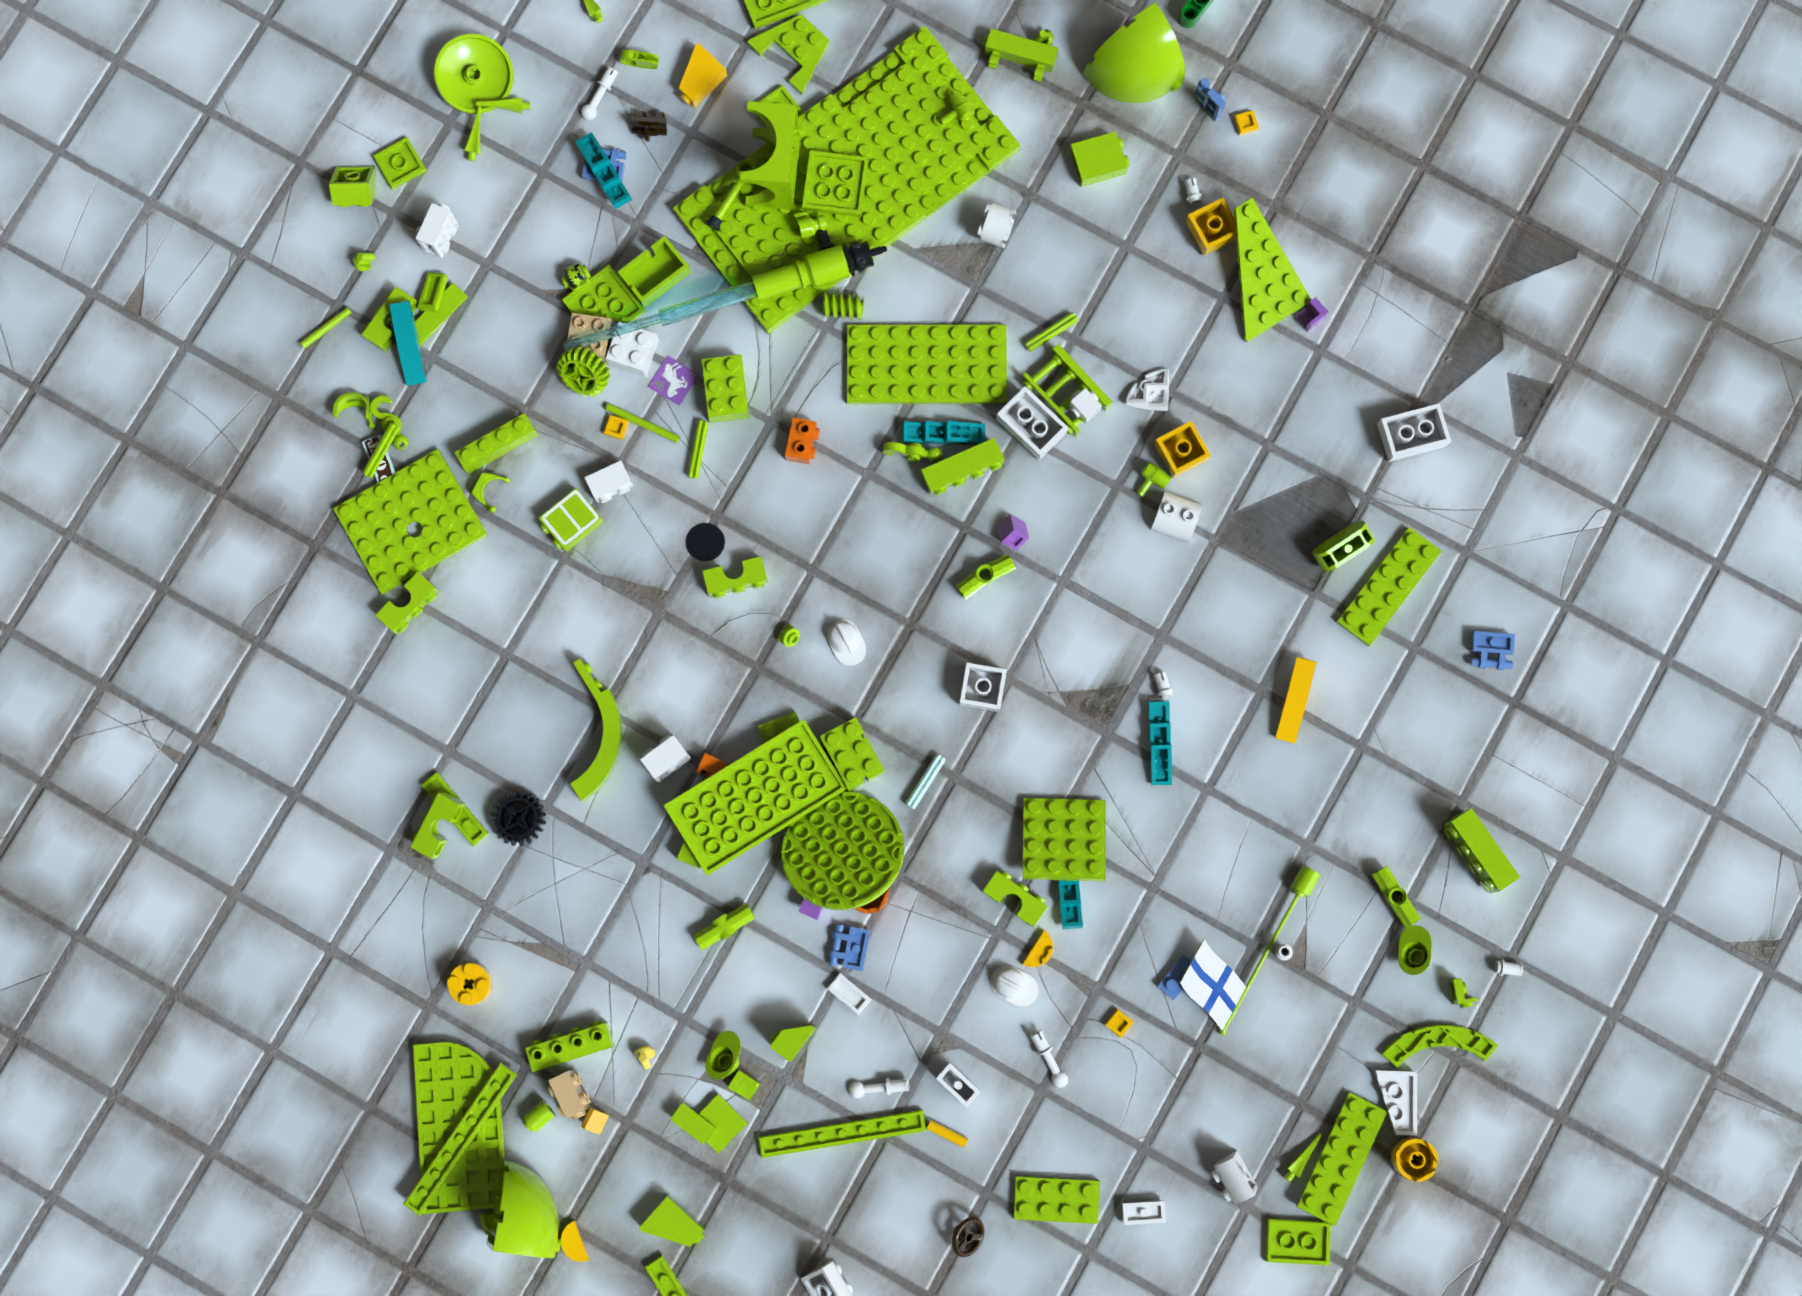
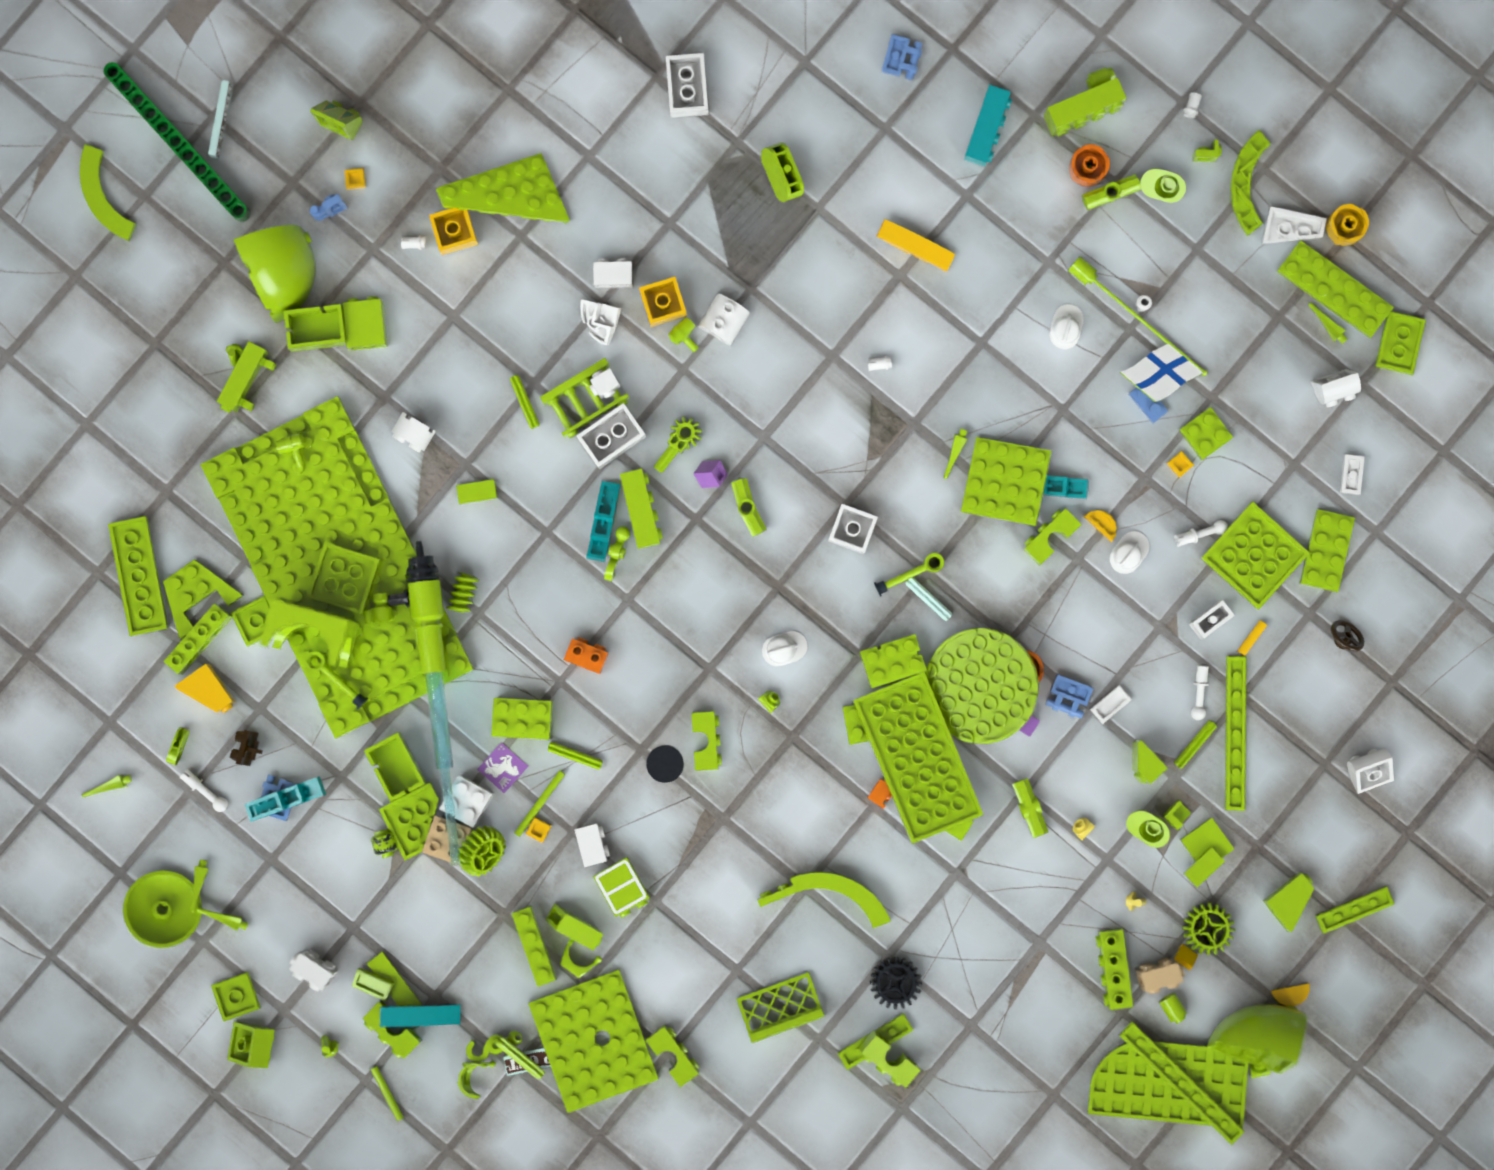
camera: 80 degrees left, 5 degrees up
(457, 712) = (785, 1024): none -> lime fence
(458, 981) = (1052, 1055): yellow brick -> none
(521, 479) = (574, 927): none -> lime slope
(624, 1131) = (1216, 927): none -> lime gear
(665, 758) = (866, 834): white brick -> none
(713, 986) = (1082, 828): none -> light yellow plate
(749, 57) = (198, 639): none -> lime brick
(822, 1092) = (1195, 744): none -> lime axle
(926, 364) = (533, 524): lime plate -> none
(928, 730) = (883, 587): none -> lime piece
(949, 301) = (476, 491): none -> lime tile
(1036, 1121) = (1255, 555): none -> lime plate
(1039, 492) = (678, 443): none -> lime gear
(1084, 109) = (315, 328): none -> lime piece
(1095, 783) = (958, 443): none -> lime piece
(1157, 1045) = (1206, 433): none -> lime plate
(1160, 742) = (932, 376): teal slope -> none
(1201, 395) = (613, 274): none -> white brick
(1242, 875) = (1066, 326): none -> white piece
(1303, 90) = (337, 118): none -> lime slope
(1312, 314) = (555, 156): medium lavender panel -> none
(1388, 586) = (825, 138): lime plate -> none
(1424, 857) = (1099, 162): none -> orange brick
(1439, 752) = (987, 126): none -> teal brick
(1518, 862) = (1099, 77): none -> lime brick

